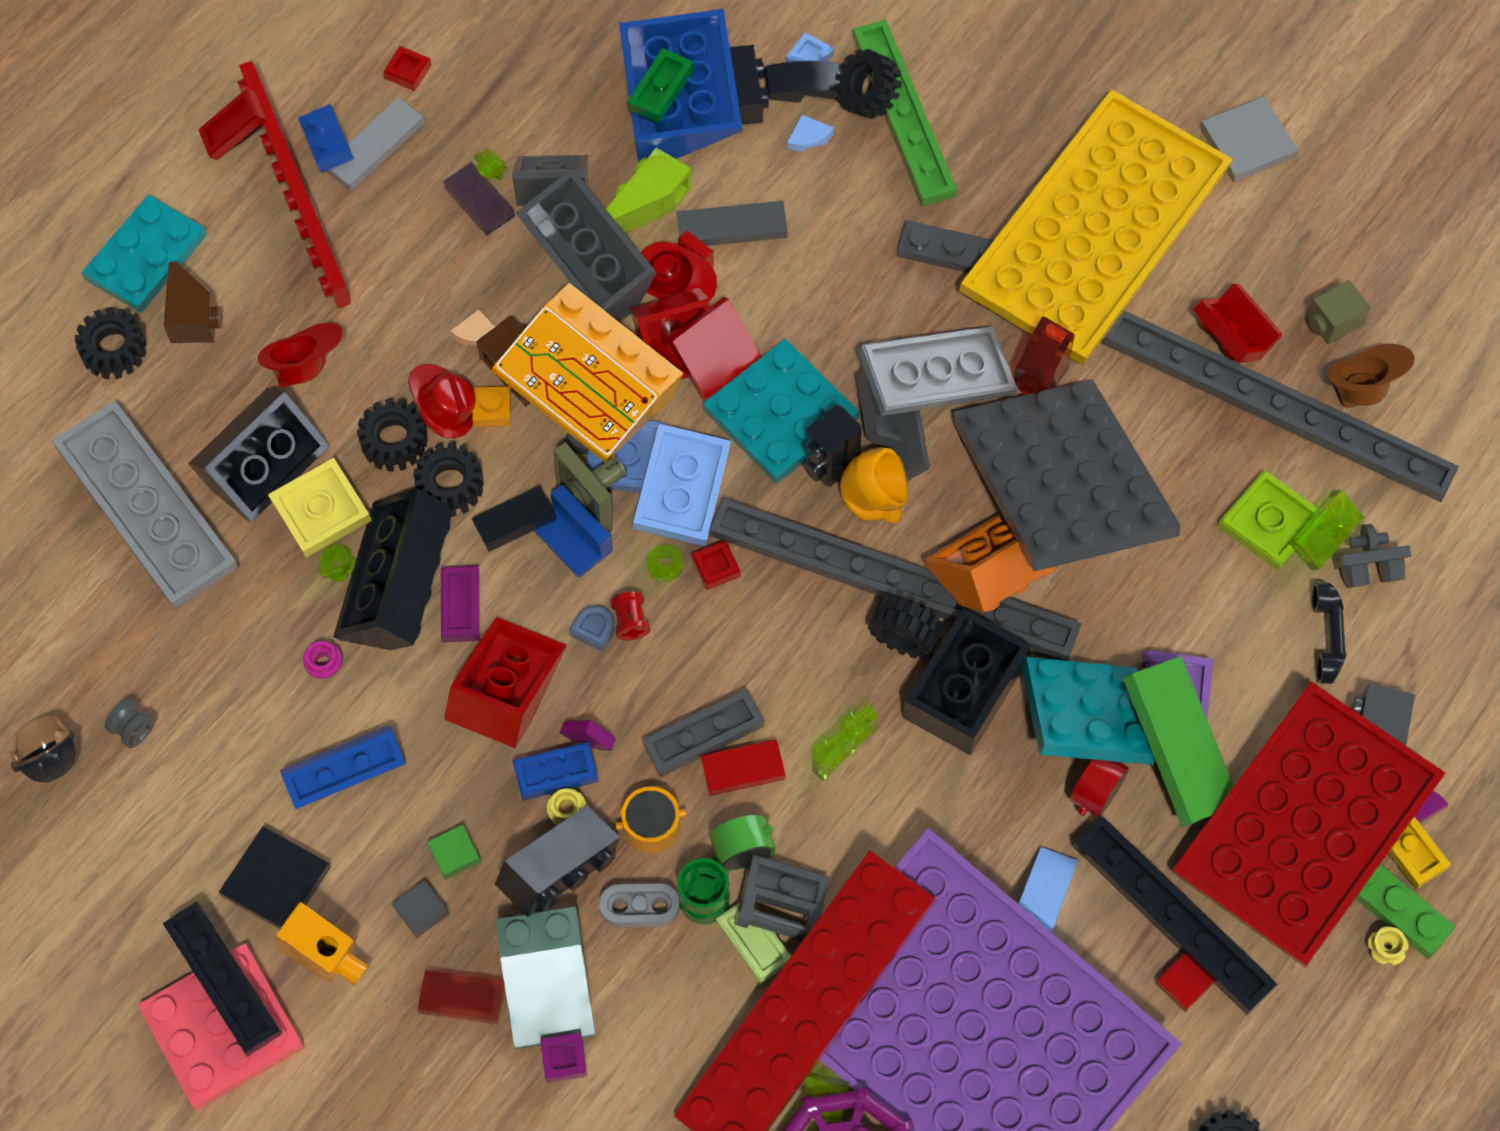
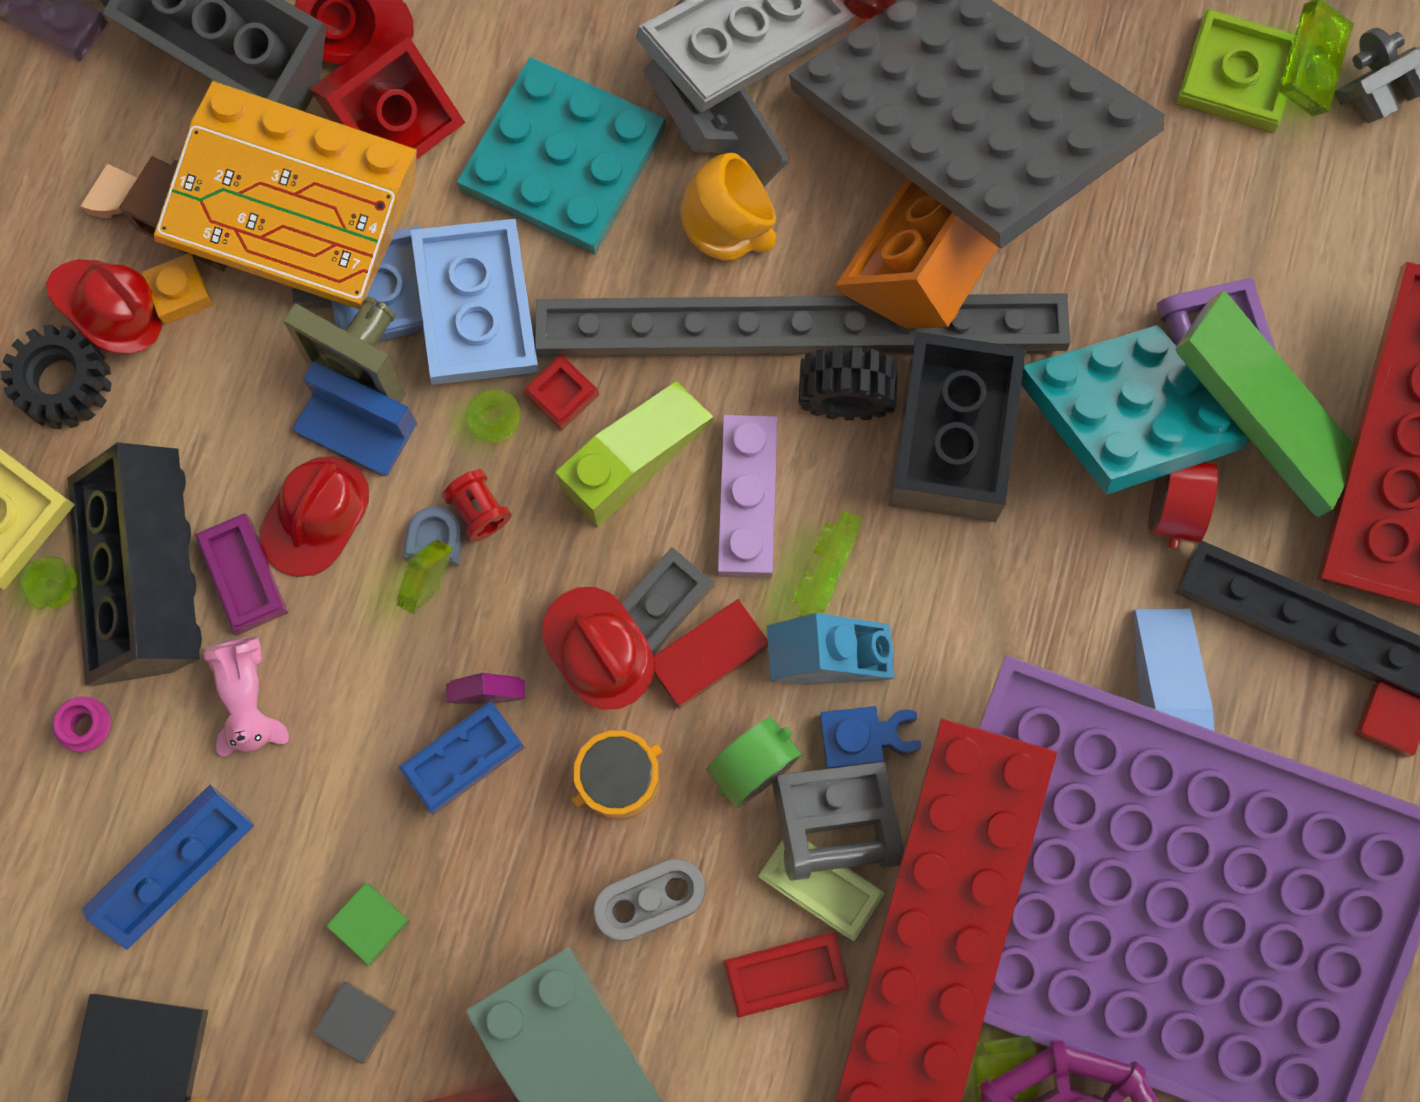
camera: 20 degrees left, 10 degrees up
(430, 673) = (237, 686): none -> bright pink animal
(450, 460) = (144, 384): black tyre -> none
(503, 682) = (341, 662): red slope -> none
(514, 519) = (267, 430): black tile -> none
(522, 584) = (314, 515): none -> red piece
(557, 861) = (518, 893): brick -> none
(562, 797) = (484, 789): light yellow plate -> none
(577, 647) = (423, 576): none -> clear neon green tile
(671, 734) = (598, 648): none -> red piece
(703, 890) = (729, 848): green wheel -> none
(708, 987) = (786, 974): none -> red tile
(714, 348) = (443, 101): tile -> none
(745, 619) = (631, 452): none -> lime slope
(811, 677) = (747, 496): none -> lavender plate
(821, 856) = (858, 738): none -> blue plate
(823, 793) = (829, 650): none -> dark azure slope
(831, 445) = (652, 175): black brick -> none
(1327, 600) = (1356, 146): black bar -> none

